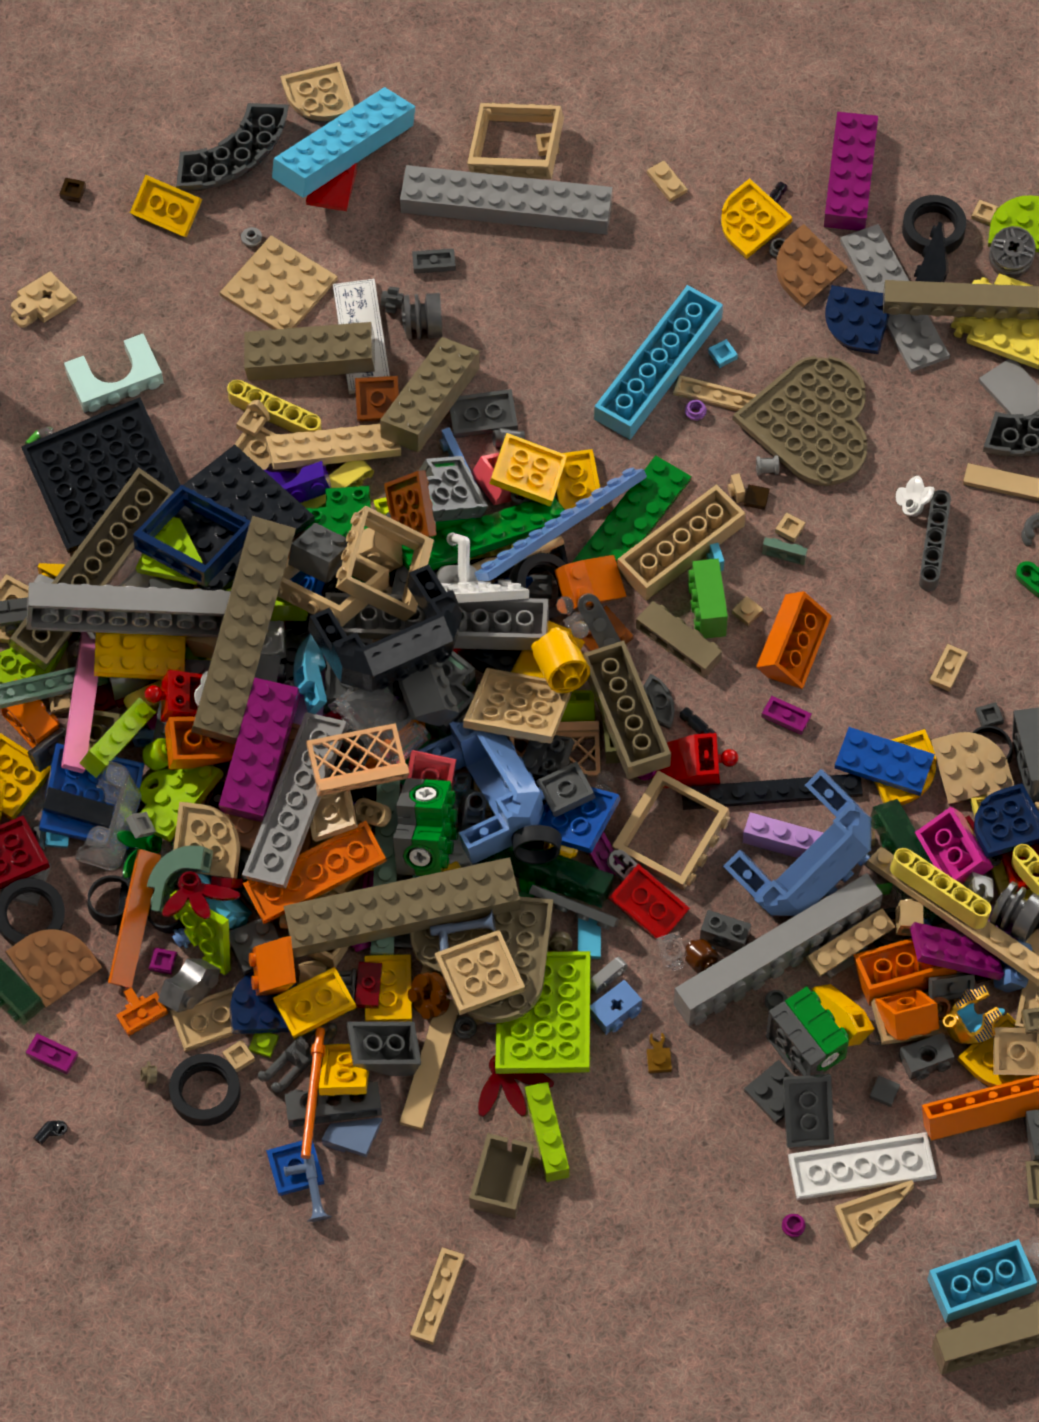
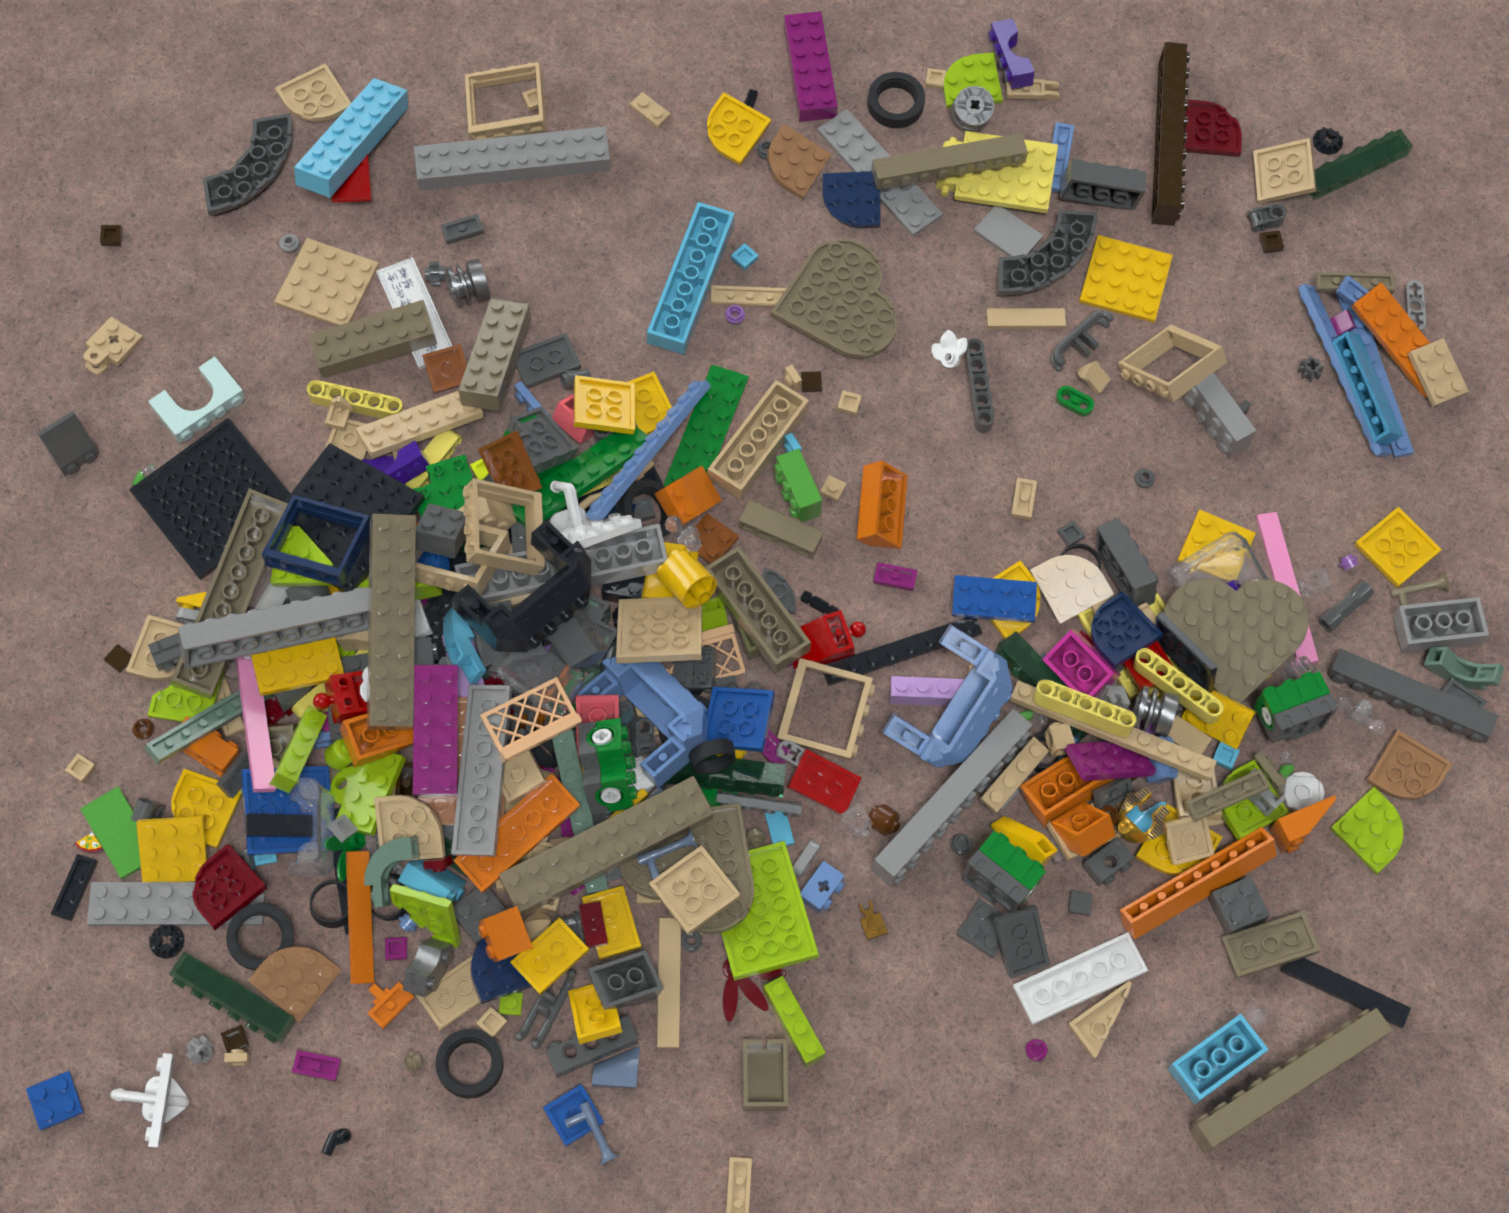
camera: 20 degrees left, 5 degrees up
(166, 206) = (202, 231): yellow plate -> none
(192, 889) = (412, 883): dark red plant -> none
(317, 1052) = (565, 1001): orange bar -> none
(373, 812) = (556, 763): tan plate -> none
(432, 1005) = (642, 920): reddish brown plate -> none
(566, 789) = (724, 697): dark grey plate -> none
(597, 621) = (708, 533): dark grey plate -> none
(725, 931) = (899, 791): dark grey brick -> none
(767, 465) = (813, 350): light grey bush -> none
(785, 551) = (851, 426): sand green plate -> none
(935, 262) = (908, 135): black slope -> none

